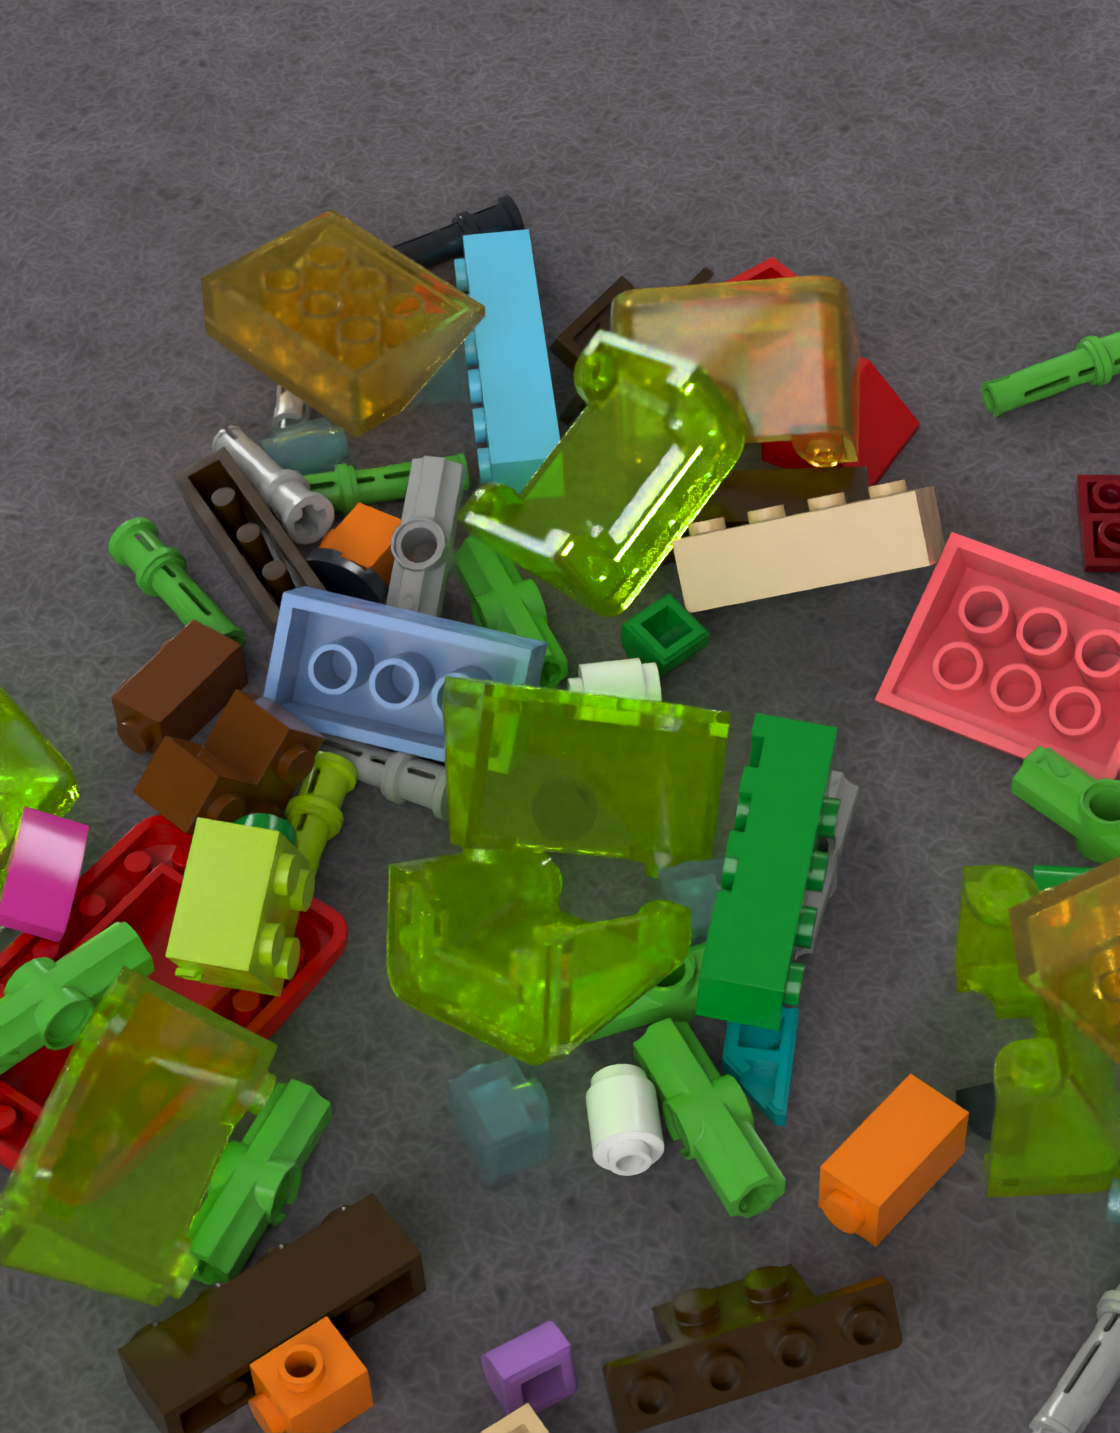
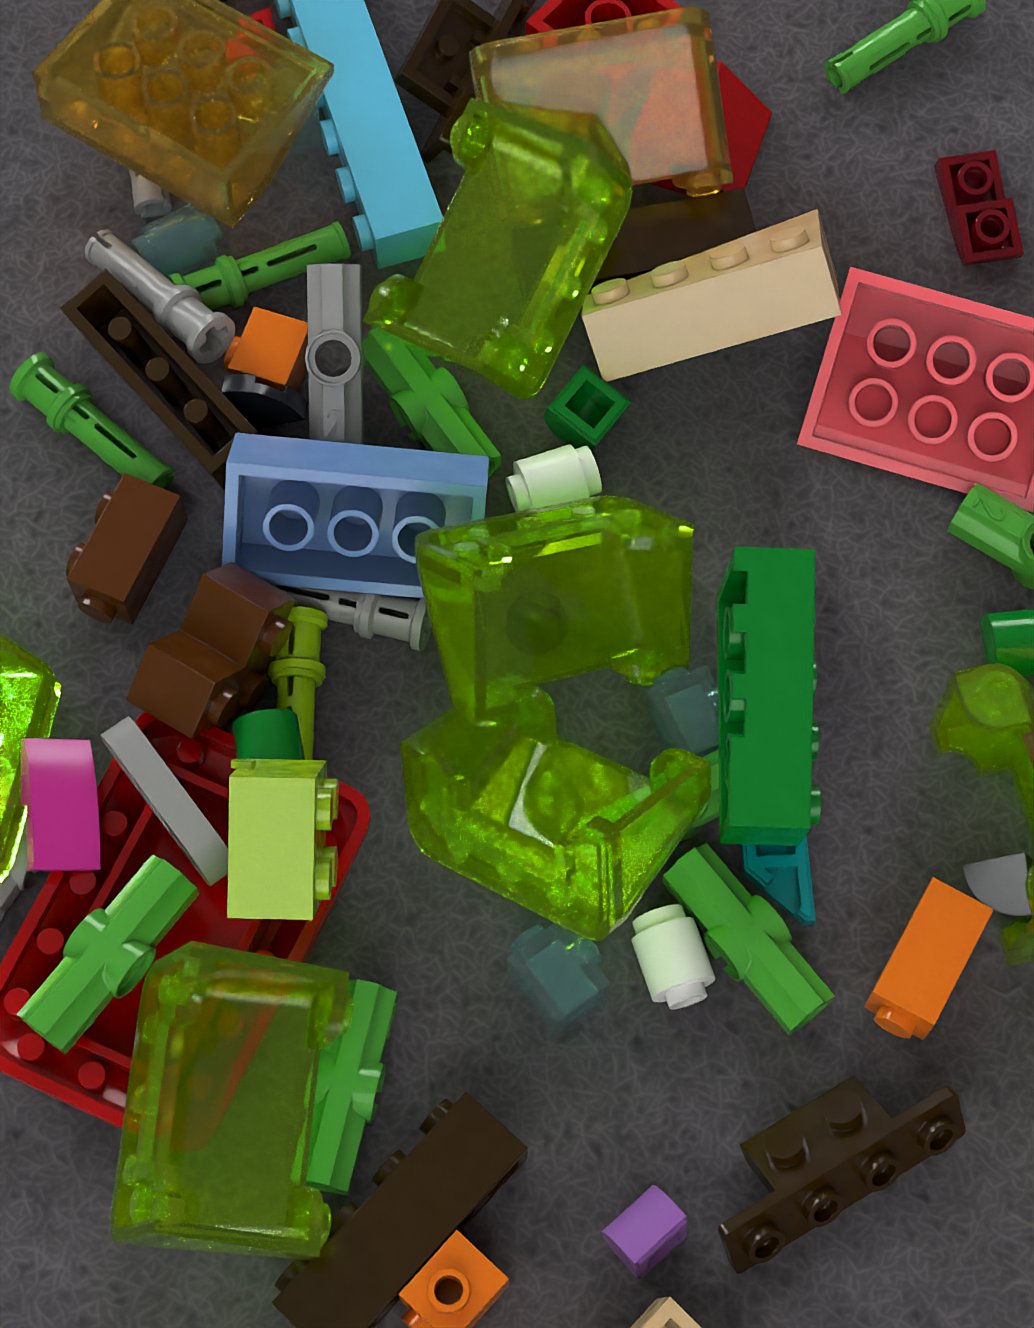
camera: 15 degrees left, 20 degrees up
(142, 873) = (168, 800): none -> light grey beam

